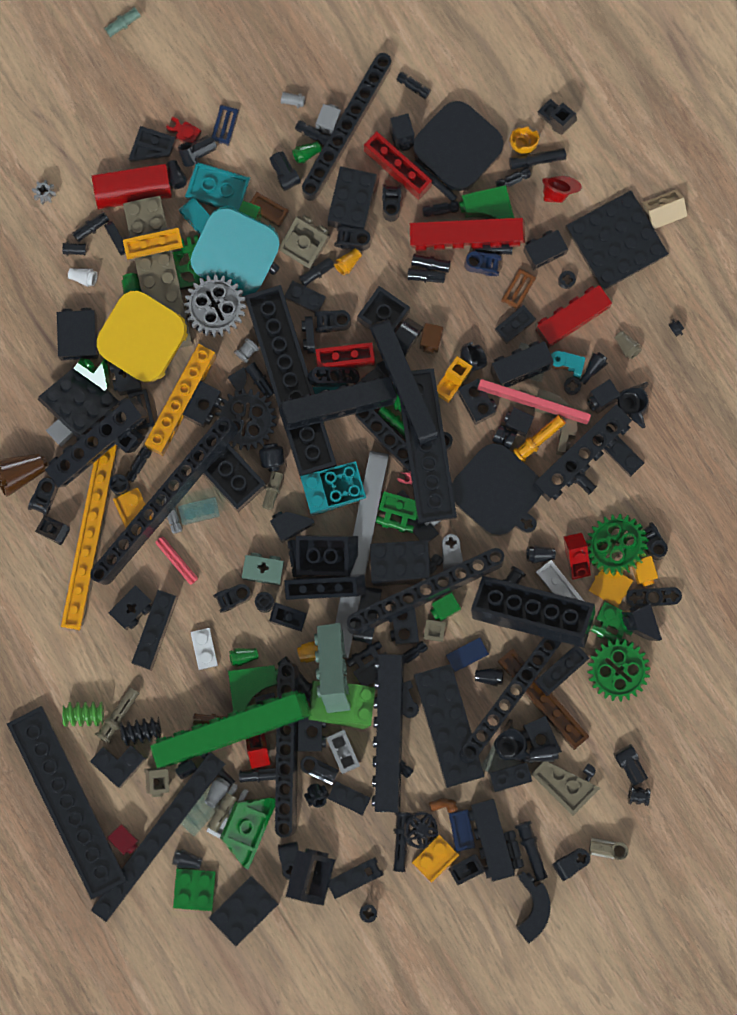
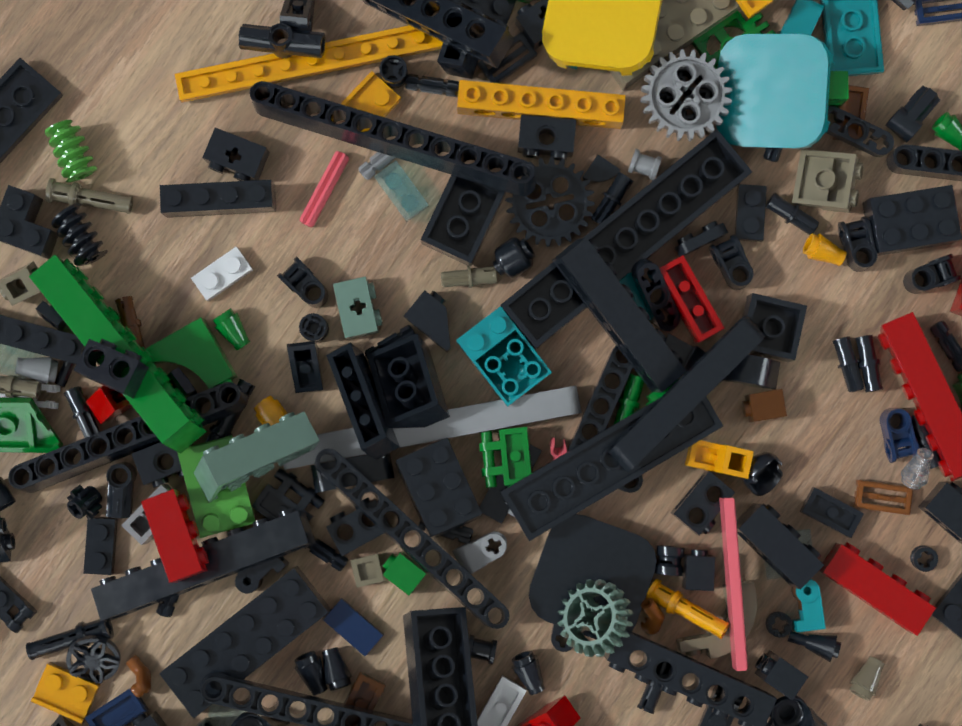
camera: 70 degrees right, 5 degrees up
(64, 557) = (297, 43): none -> black piece
(244, 734) = (110, 370): none -> black brick
(287, 198) = (870, 146): none -> black beam
(363, 738) = (175, 535): none -> red brick
(485, 692) = (311, 672): none -> black cone
(509, 260) = (917, 470): none -> clear cone
(521, 480) = (583, 602): none -> sand green gear
(537, 460) = (655, 617): none -> dark orange arm

